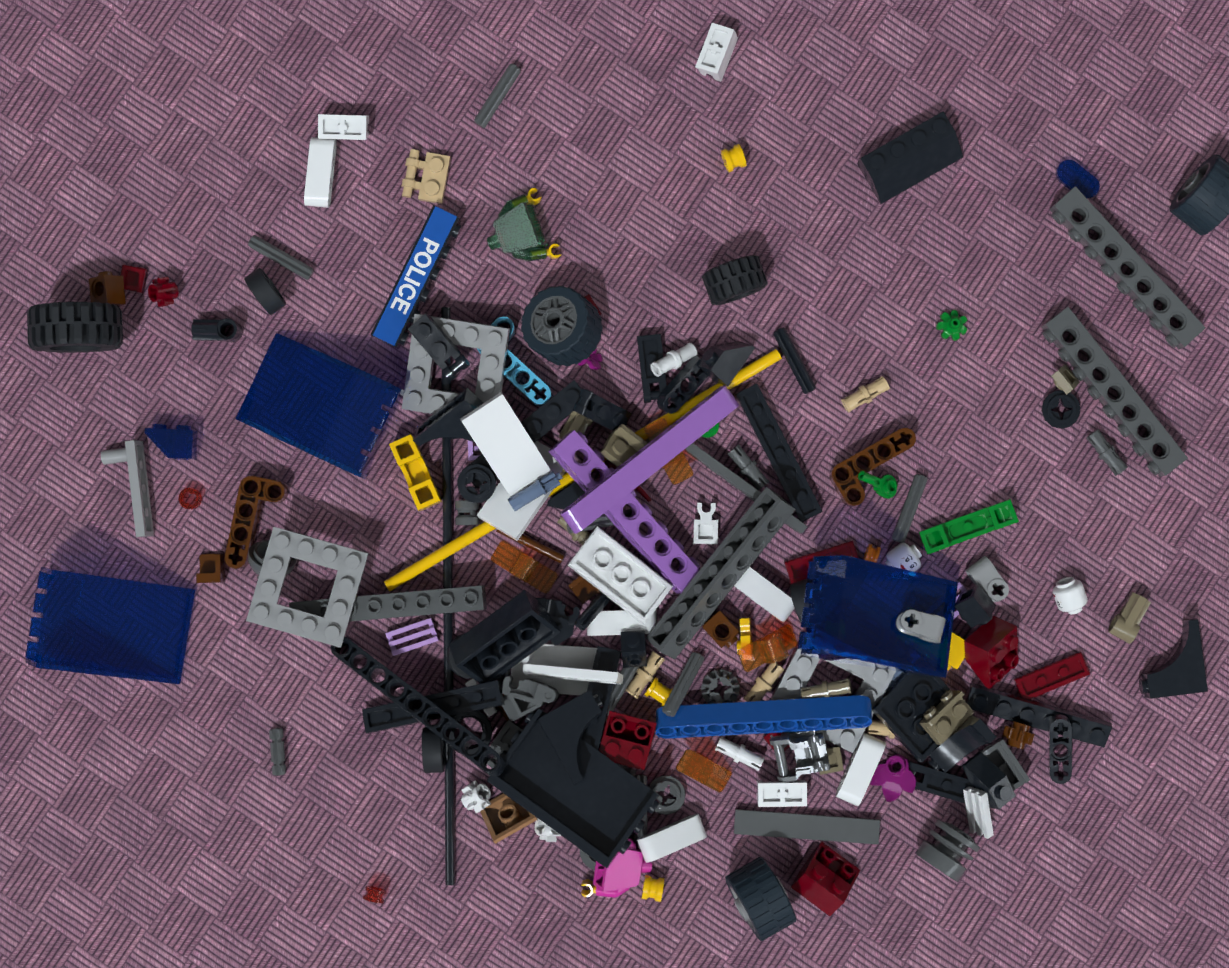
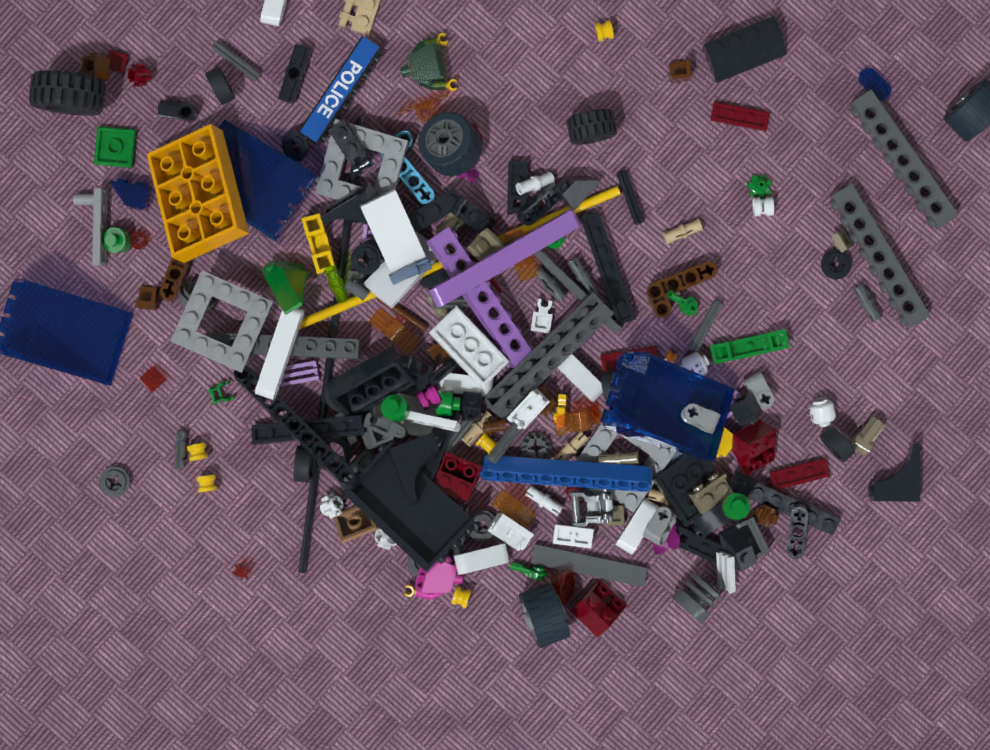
camera: 10 degrees right, 0 degrees up
(144, 385) = (114, 147): none -> green tile
(162, 501) = (116, 240): none -> green piece
(190, 809) = (112, 473): none -> dark grey gear
(231, 668) = (153, 379): none -> clear red plate
(255, 431) = (197, 193): none -> light orange brick
(299, 752) = (197, 452): none -> yellow wheel
(309, 679) = (211, 391): none -> green piece
(316, 790) = (206, 483): none -> yellow wheel
(357, 249) = (291, 85): none -> black piece
(362, 346) = (290, 140): none -> black gear
(382, 528) = (286, 283): none -> green wedge
(384, 615) = (279, 353): none -> white beam
(443, 519) = (336, 284): none -> clear neon green pin
(469, 522) = (356, 289): none -> dark grey pin
(525, 280) = (426, 105): none -> clear orange piece
(539, 666) = (395, 408): none -> green piece
(578, 646) = (428, 397): none -> dark pink wheel
(604, 650) = (448, 403): none -> green piece
(665, 669) = (494, 426): none -> reddish brown pin
(702, 799) = (510, 532): none -> white hinge
(705, 643) = (528, 409): none -> white hinge
(710, 483) = (550, 284): none -> dark grey pin
(742, 845) = (536, 573): none -> green plate
(778, 856) = (563, 584): none -> clear red hat
(834, 196) = (679, 71): none -> reddish brown panel
(888, 769) = (659, 528): none -> light grey piece
(916, 242) = (739, 116): none -> dark red tile
(961, 349) = (766, 205): none -> white wheel
(983, 733) = (736, 506): none -> green piece
(1094, 633) = (837, 444): none -> black tyre

